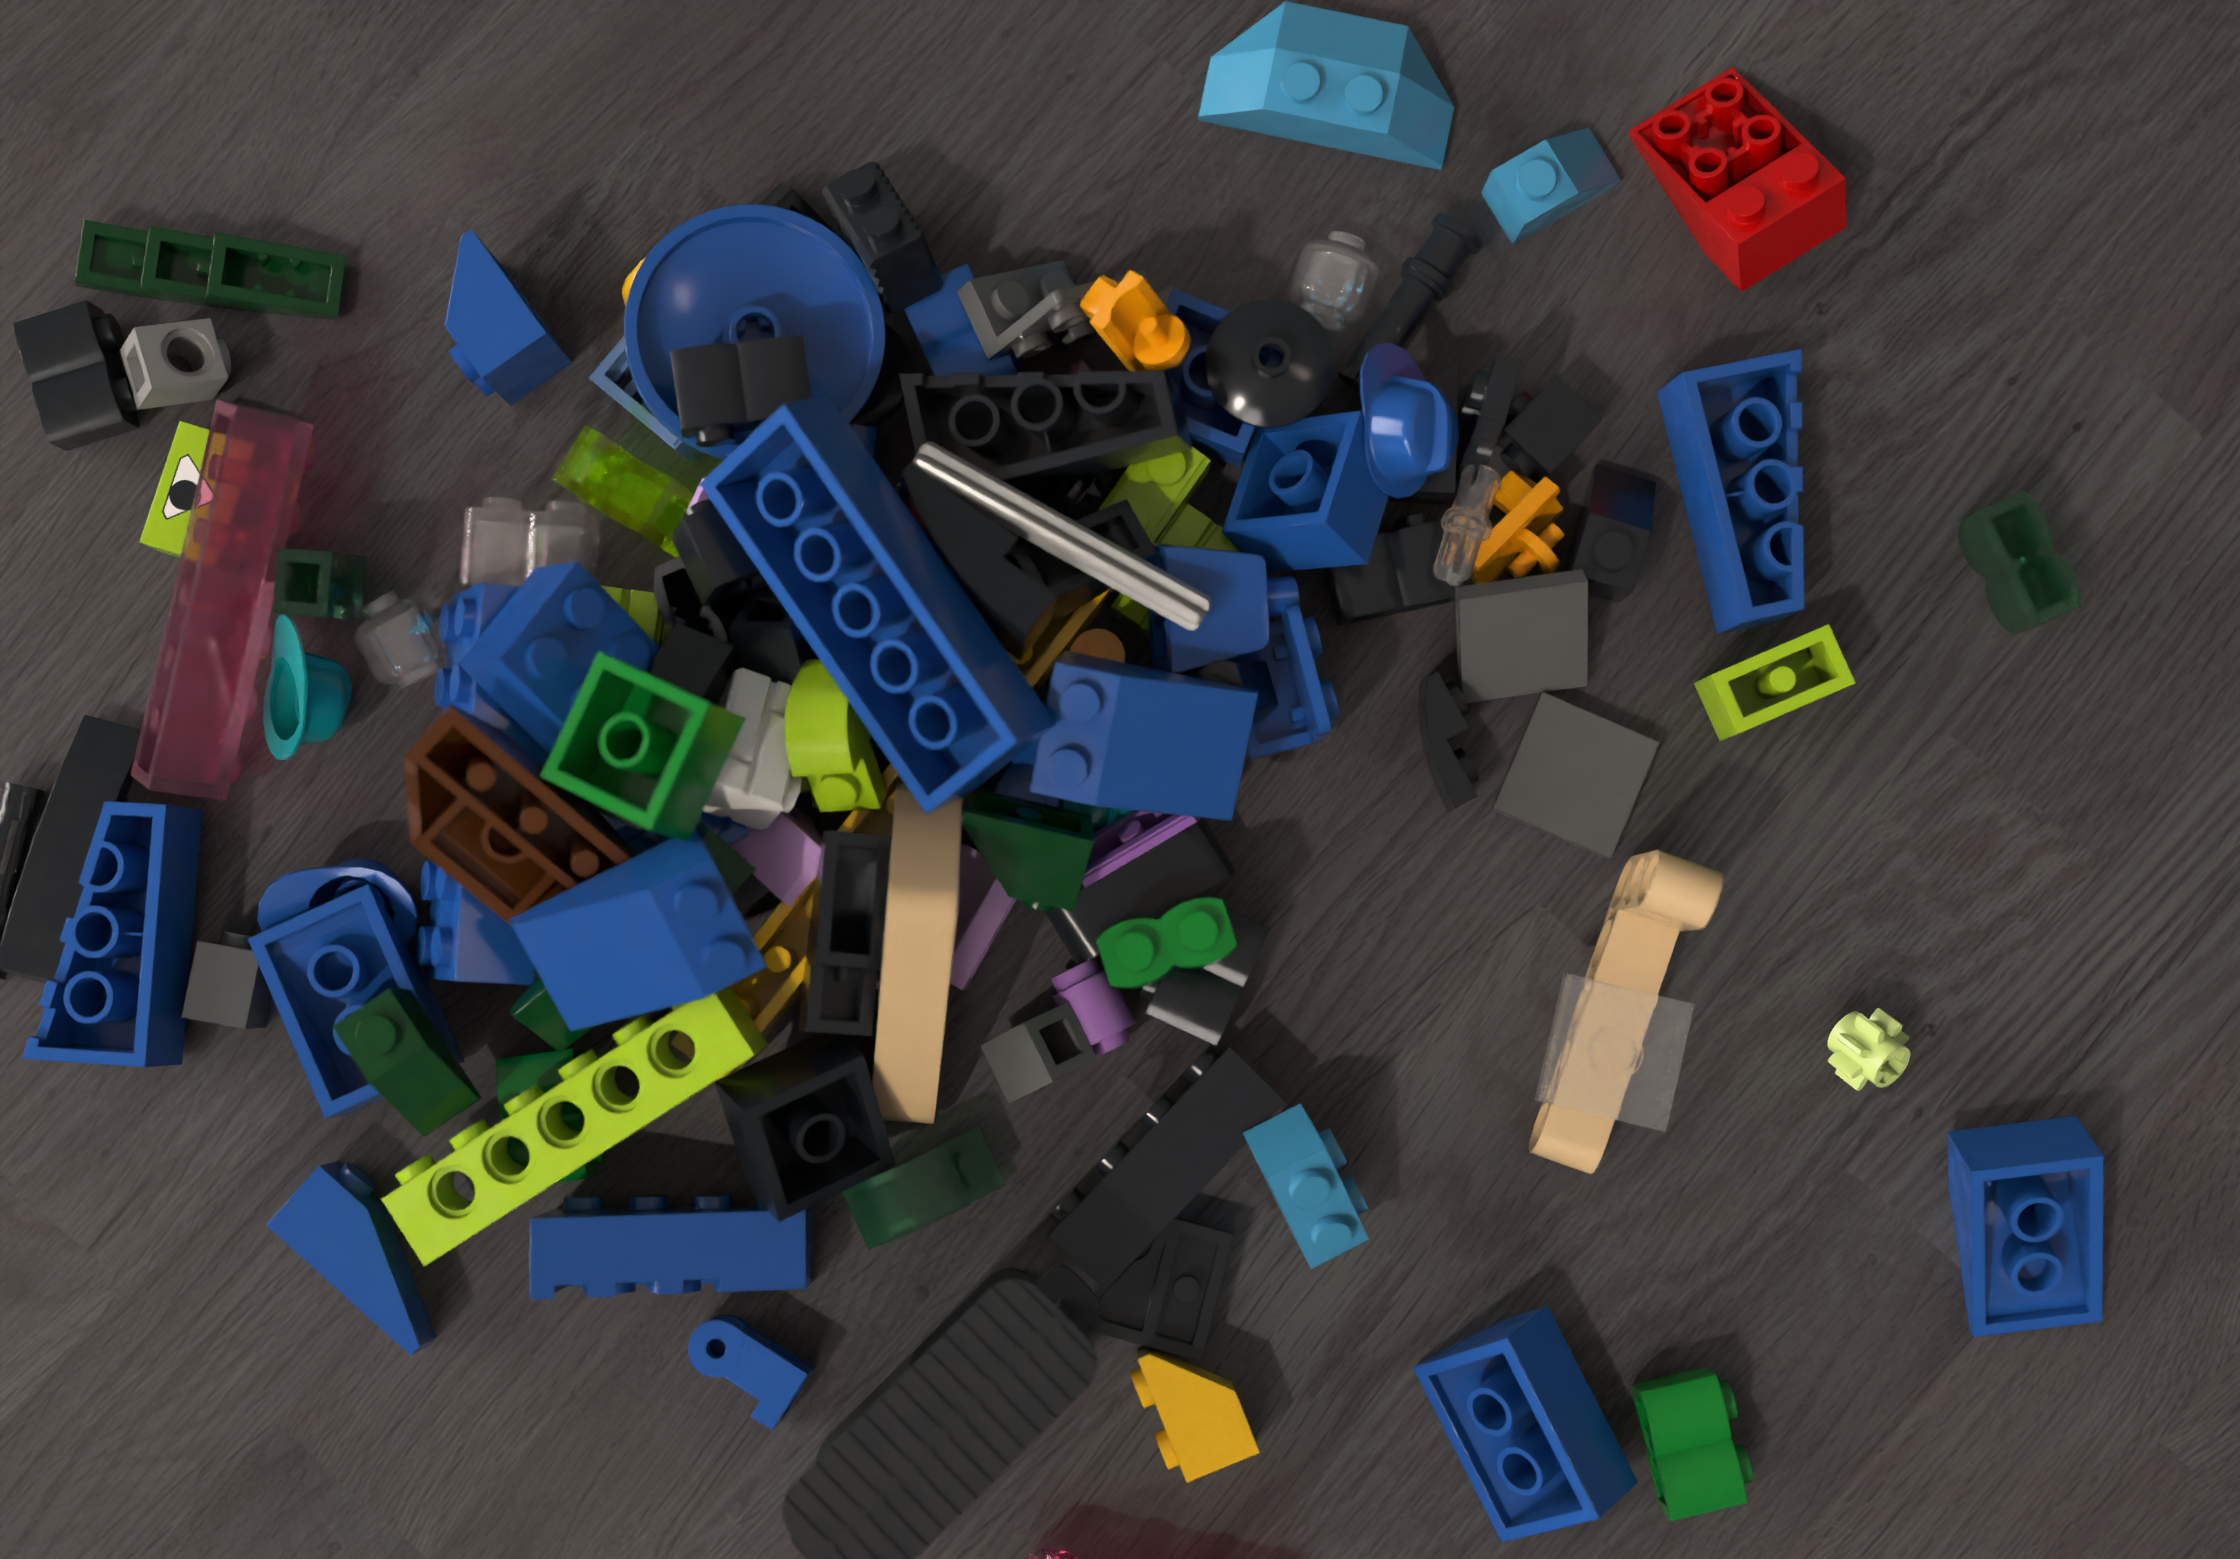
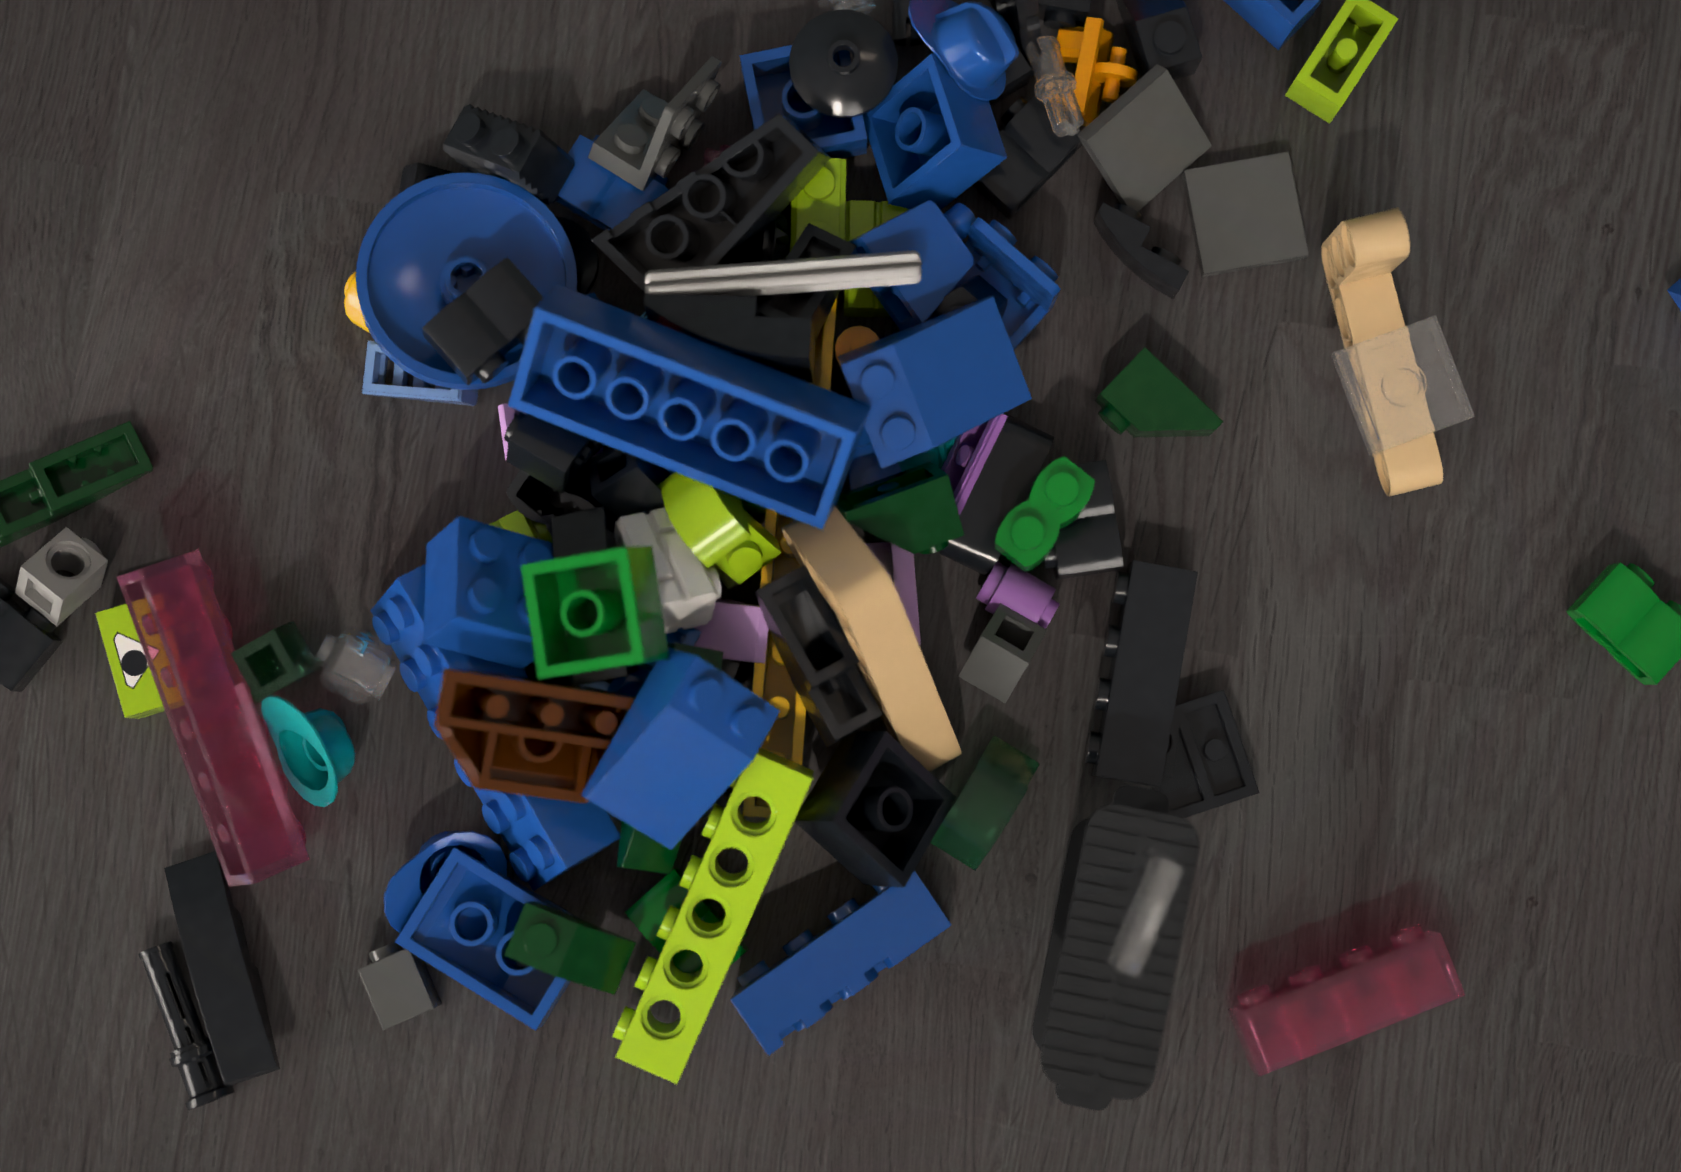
camera: 30 degrees left, 0 degrees up
(127, 945) = (307, 1006): blue wedge -> none
(353, 1244) = (608, 1110): blue slope -> none
(496, 329) = (280, 397): blue slope -> none
(508, 543) = (398, 540): clear brick -> none
(624, 489) = (448, 453): clear neon green brick -> none
(752, 1362) = (931, 1004): blue leg -> none
(979, 1422) = (1145, 915): none -> clear tile
(1136, 323) = (735, 94): light orange hips -> none
(1198, 1411) = (1282, 830): yellow slope -> none
(1306, 1185) = (1251, 619): dark azure brick -> none
(1356, 902) = (1154, 403): none -> dark green slope
(1526, 1426) = (1513, 687): blue slope -> none
(1868, 1049) = (1575, 268): yellowish green gear -> none

